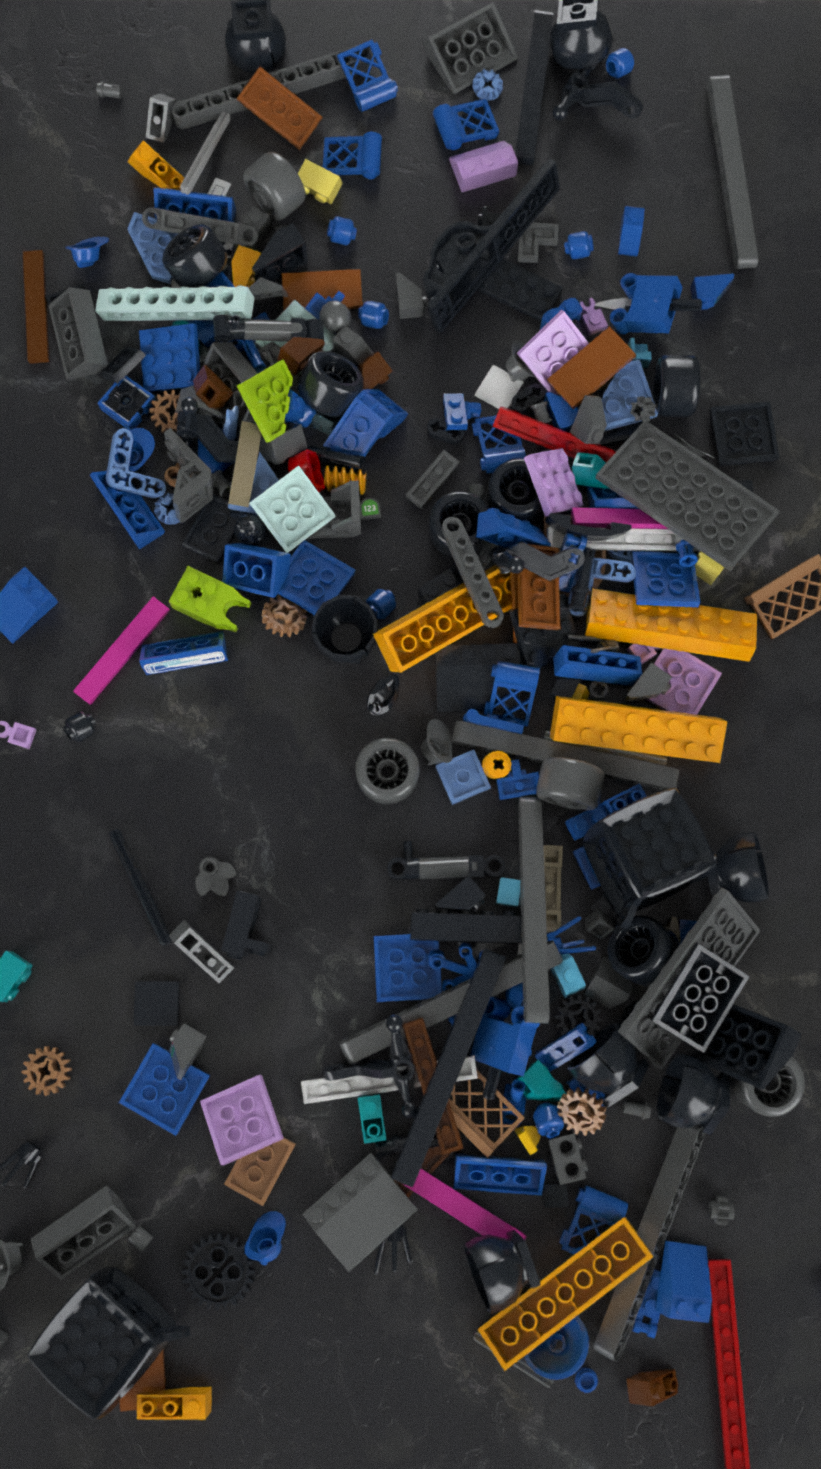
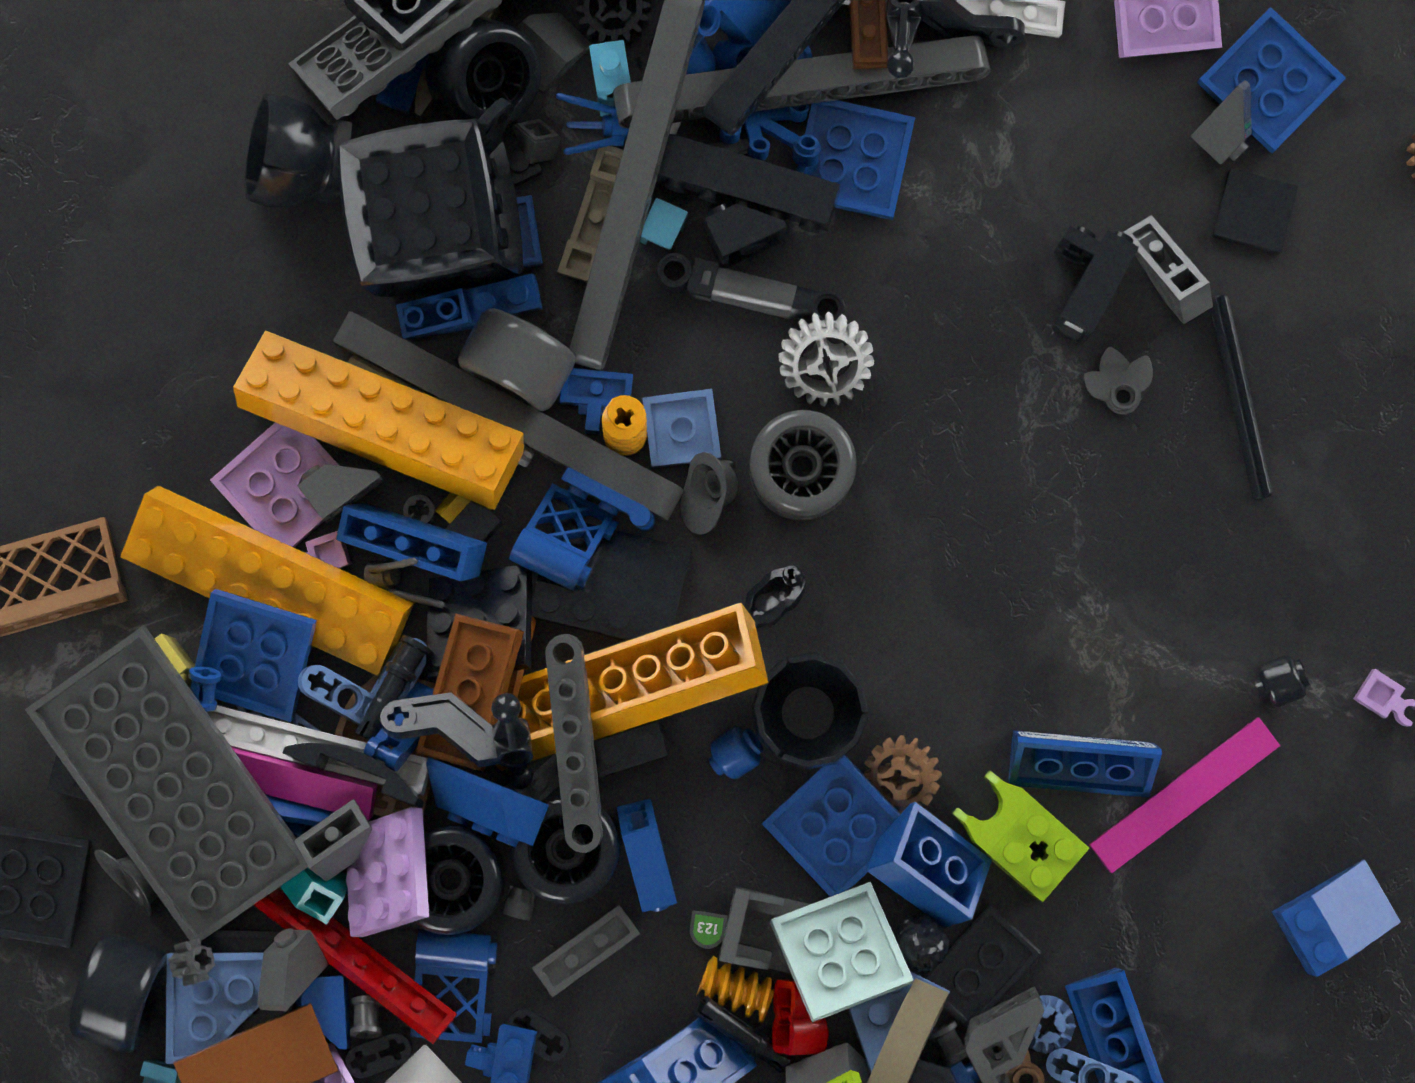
camera: 165 degrees left, 5 degrees up
(390, 837) = (812, 362): none -> white gear
(415, 536) = (646, 855): none -> blue slope
(588, 489) = (335, 841): none -> dark grey slope

